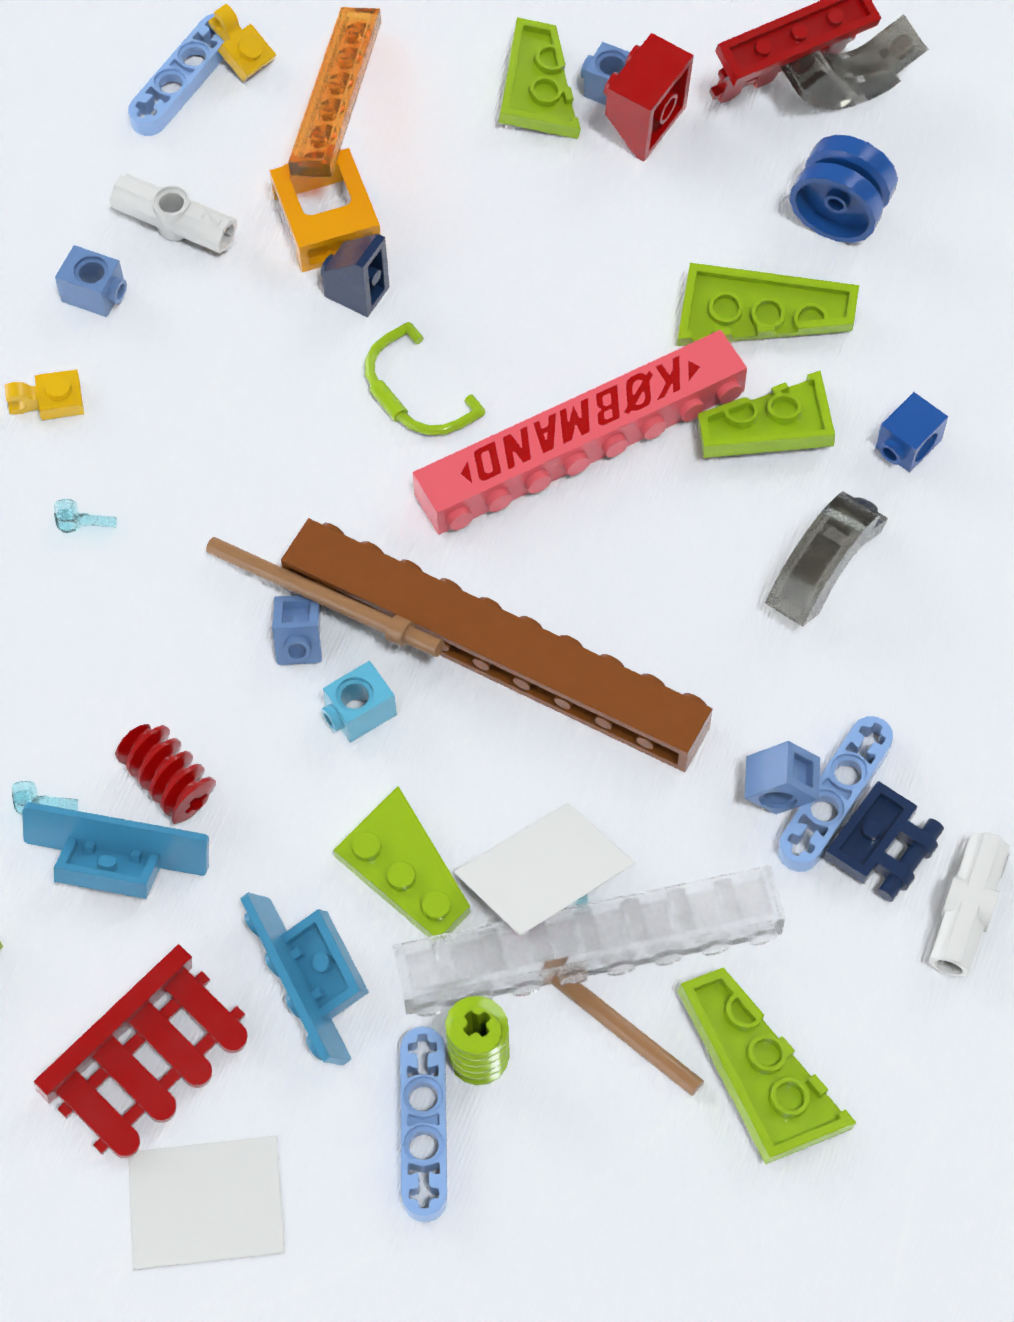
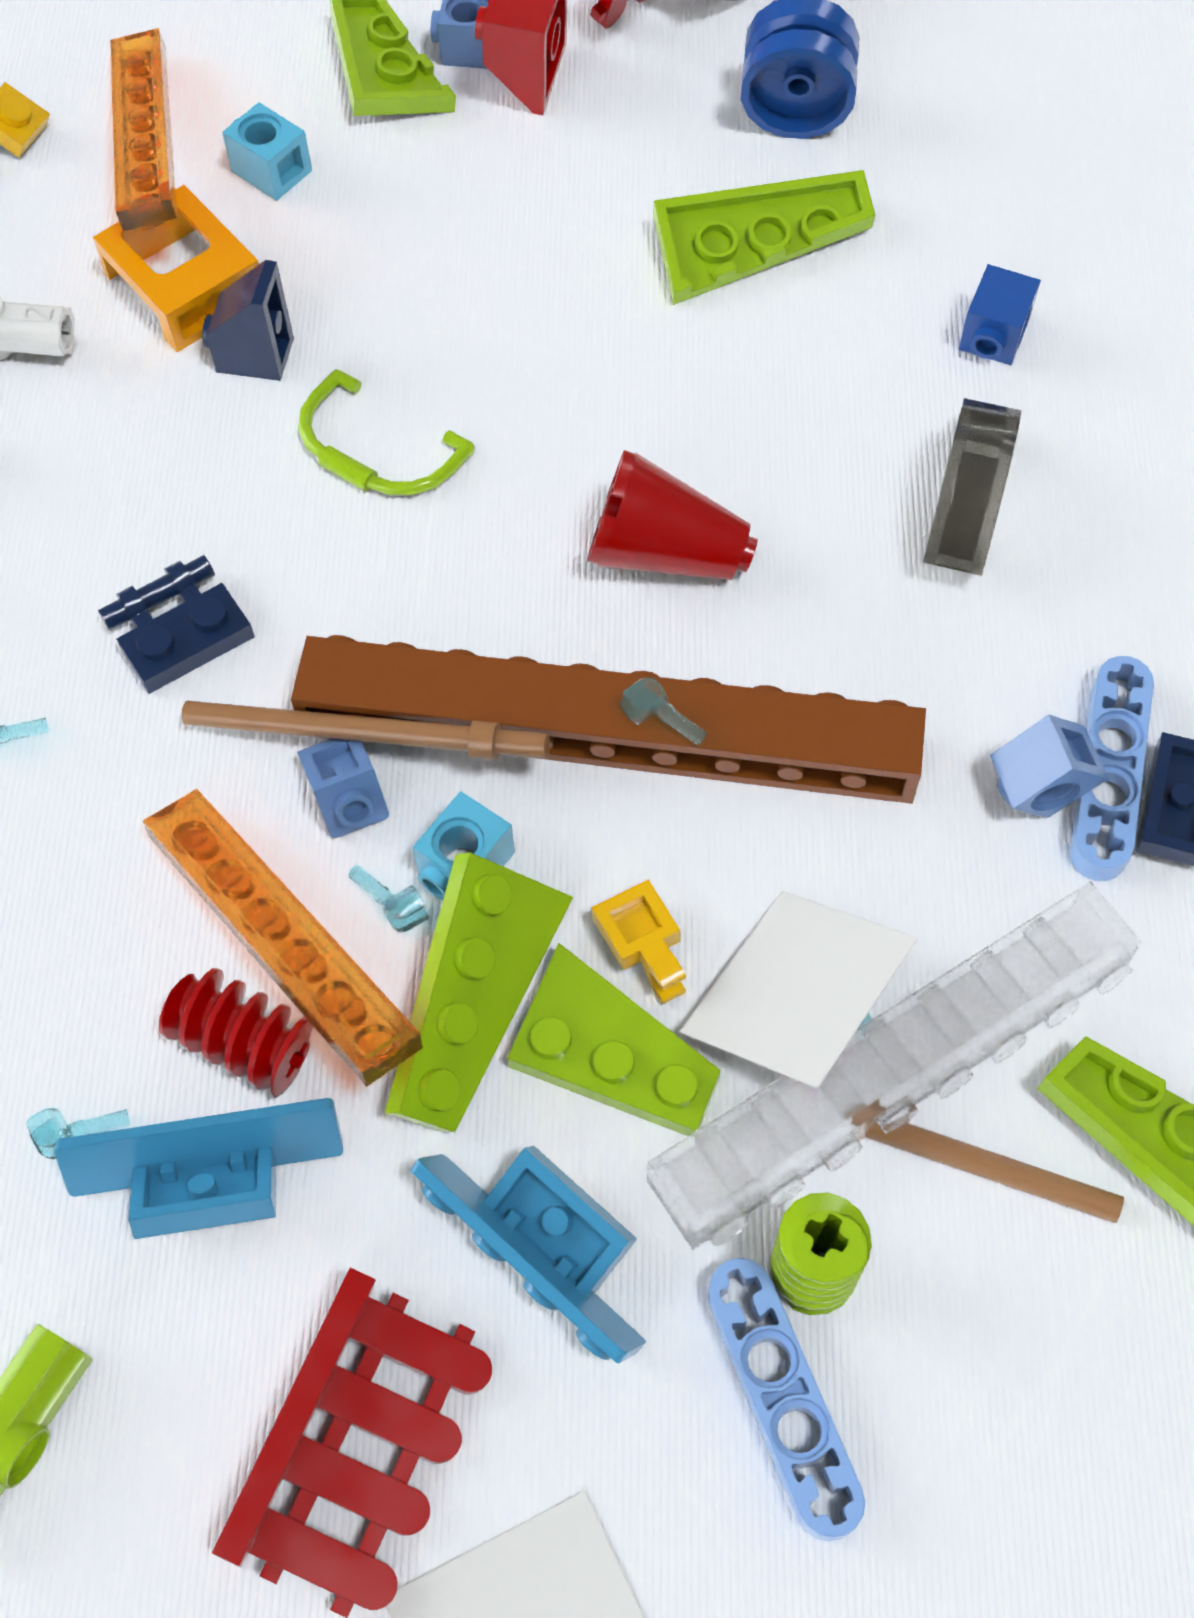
camera: 20 degrees left, 0 degrees up
(215, 718) = (284, 938): none -> clear orange plate
(230, 488) = (182, 637): none -> dark blue plate
(304, 727) = (402, 909): none -> clear light blue hand
(333, 787) = (474, 978): none -> lime wing
(422, 134) = (267, 151): none -> medium azure brick
(455, 796) = (642, 931): none -> yellow plate
(518, 638) = (649, 698): none -> clear light blue hand
(579, 432) = (576, 453): coral brick -> none
(590, 518) = (667, 526): none -> red cone
(778, 421) = (828, 354): lime wing -> none

